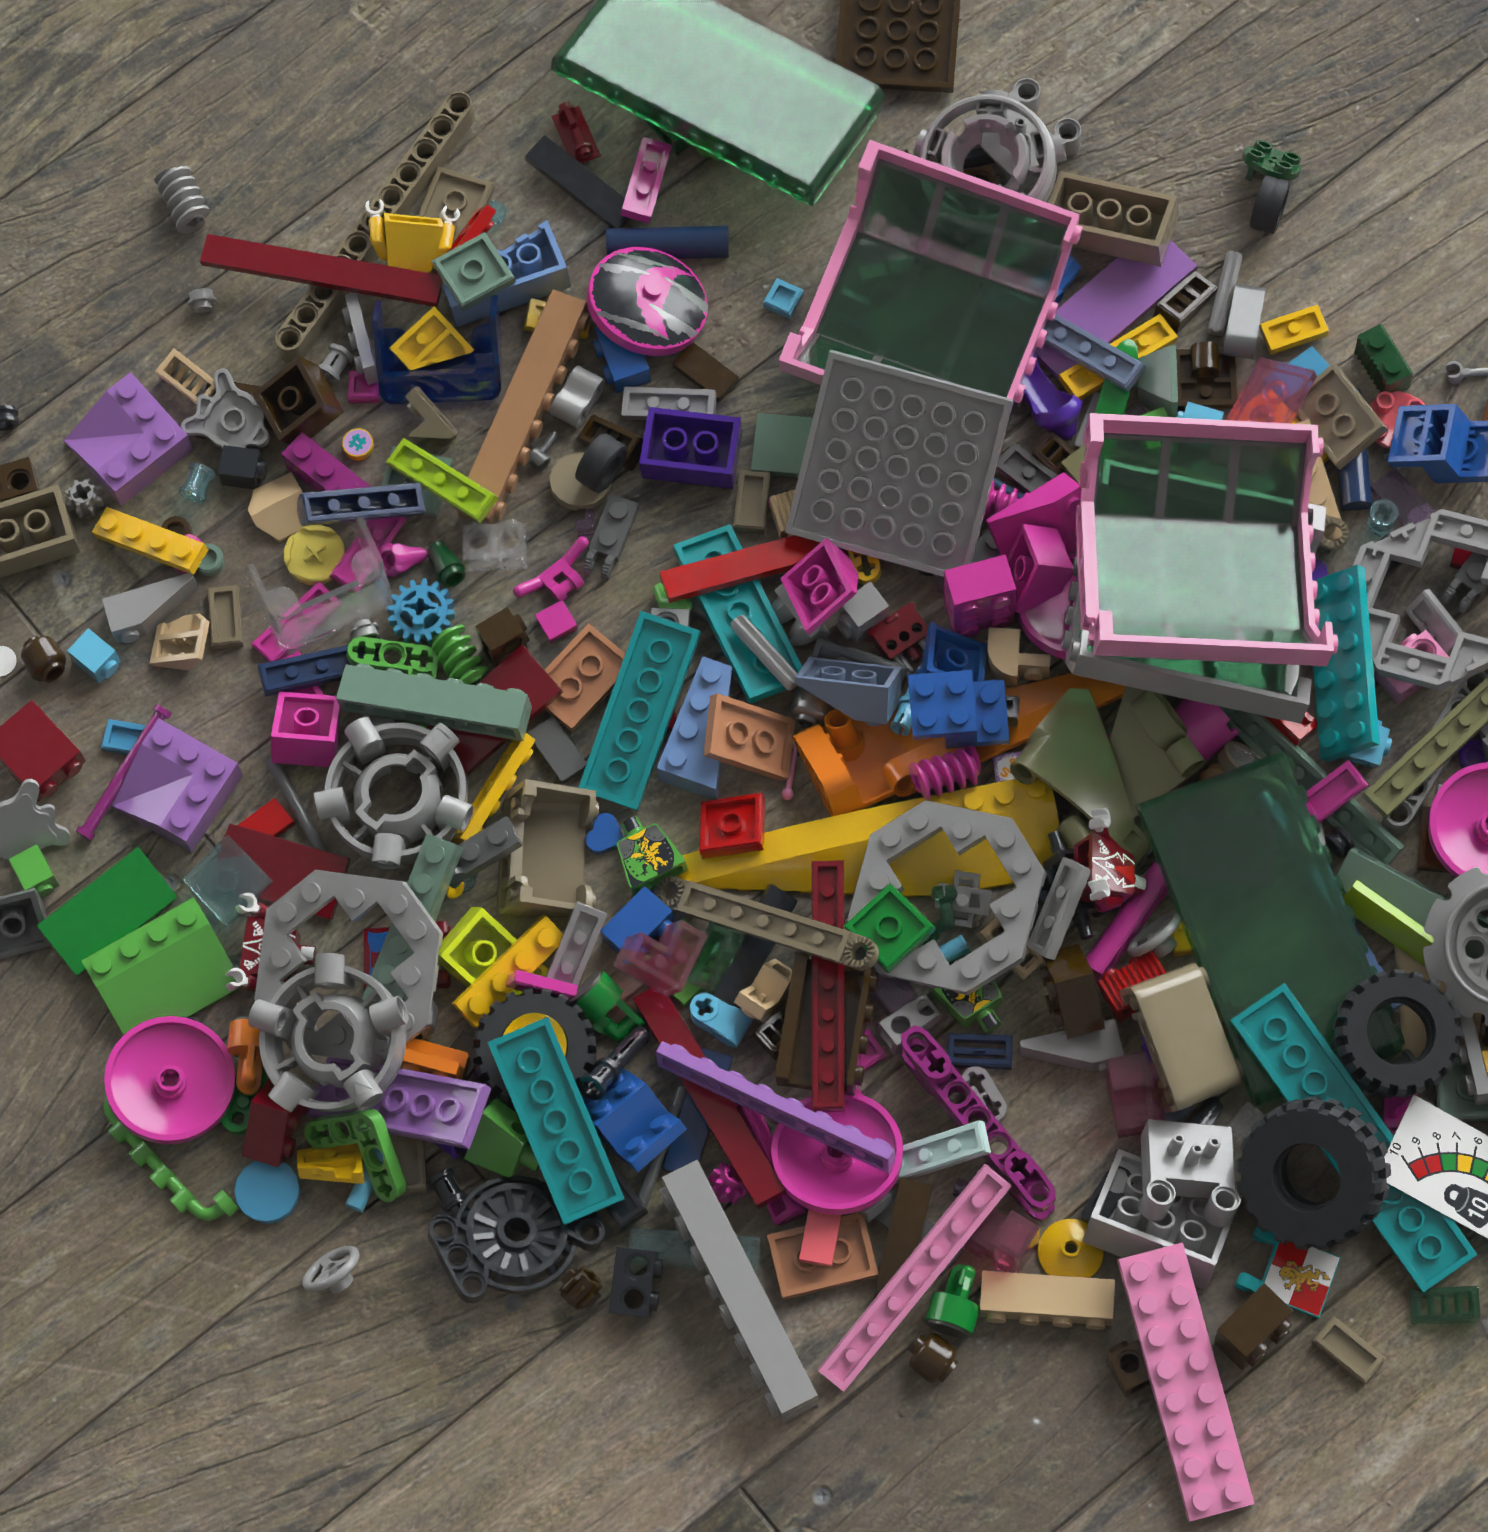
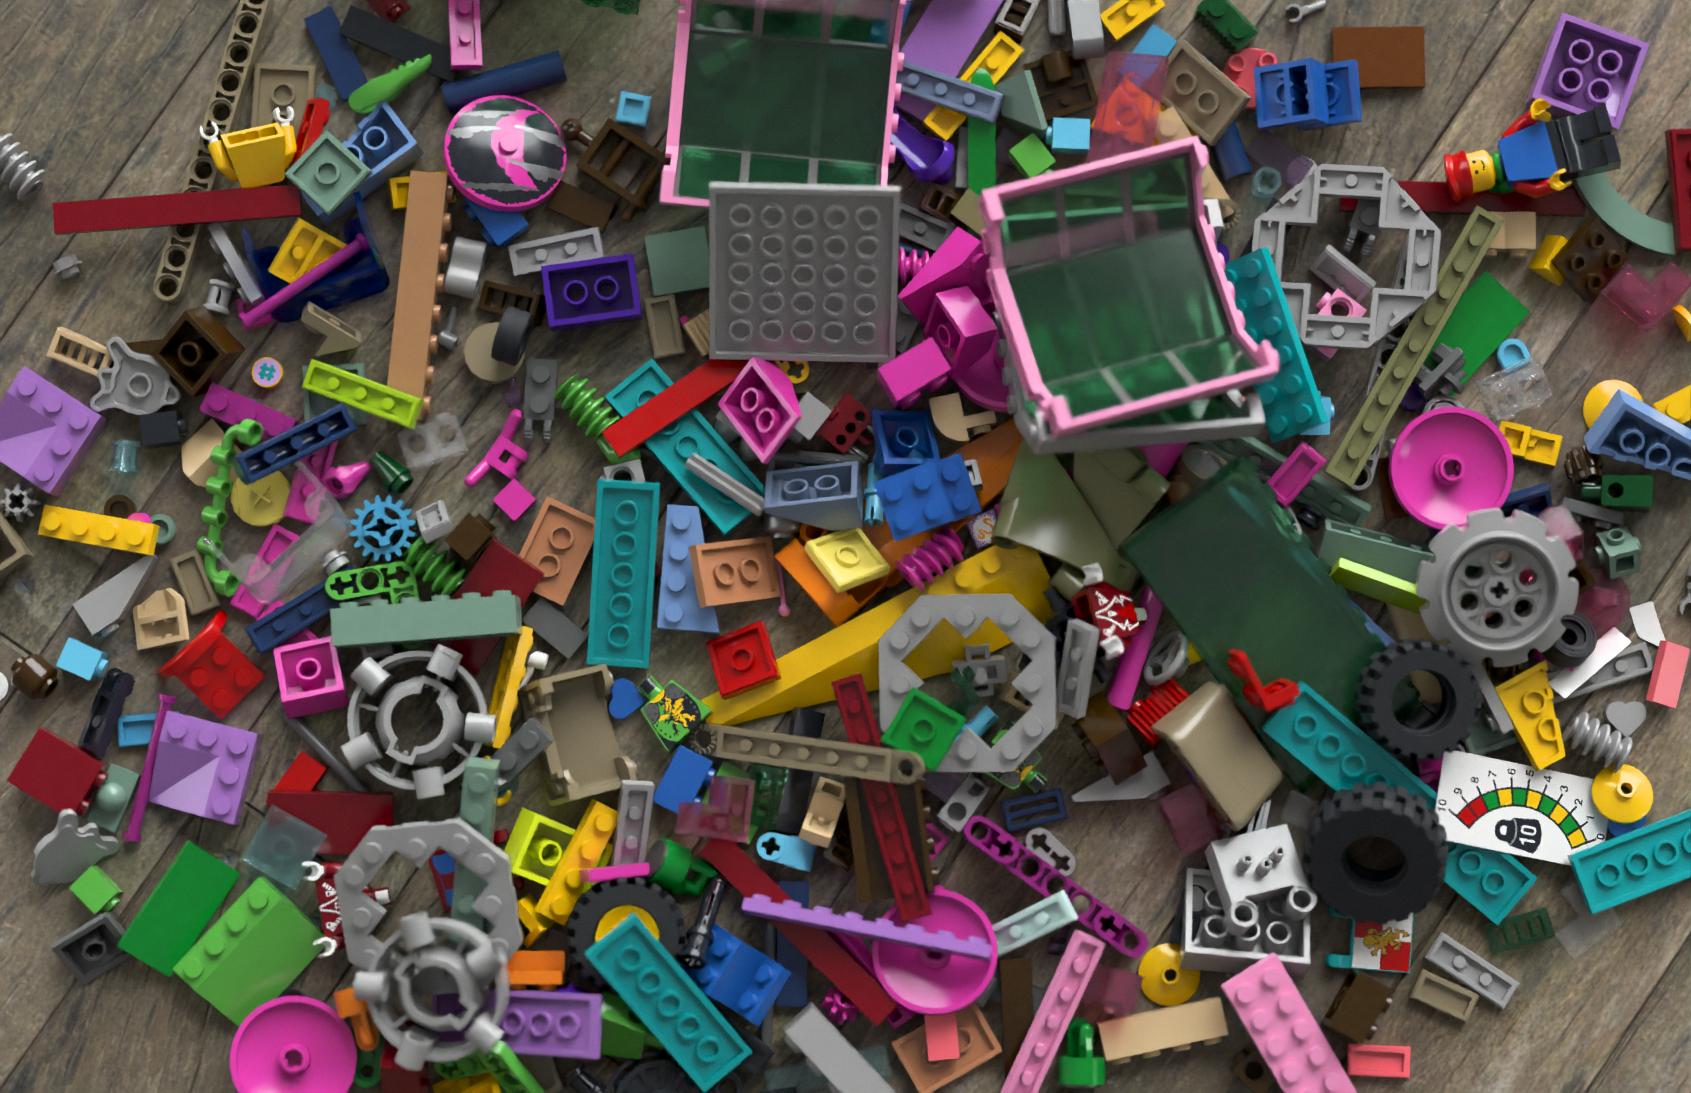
camera: 25 degrees left, 15 degrees up
(80, 793) = (114, 798): none -> sand green tile
(100, 709) = (106, 711): none -> black hinge
(216, 696) = (214, 668): none -> red piece
(278, 531) = (220, 486): none -> bright green bar
(419, 365) = (304, 281): none -> magenta bar
(451, 1019) = (533, 920): none -> yellow tile
(471, 615) = (434, 521): none -> light grey plate
(518, 179) = (336, 52): none -> dark blue tile
(528, 772) = (536, 660): none -> white hand
(555, 212) = (388, 86): none -> bright green animal
(649, 548) = (585, 406): none -> bright green piece
(735, 319) = (627, 139): none -> dark brown piece
(862, 750) = (847, 558): none -> light yellow tile
(1249, 985) = (1277, 694): none -> red bracket
(1262, 1396) = (1378, 1060): none -> coral tile
(1384, 1332) = (1471, 970): none -> light grey tile

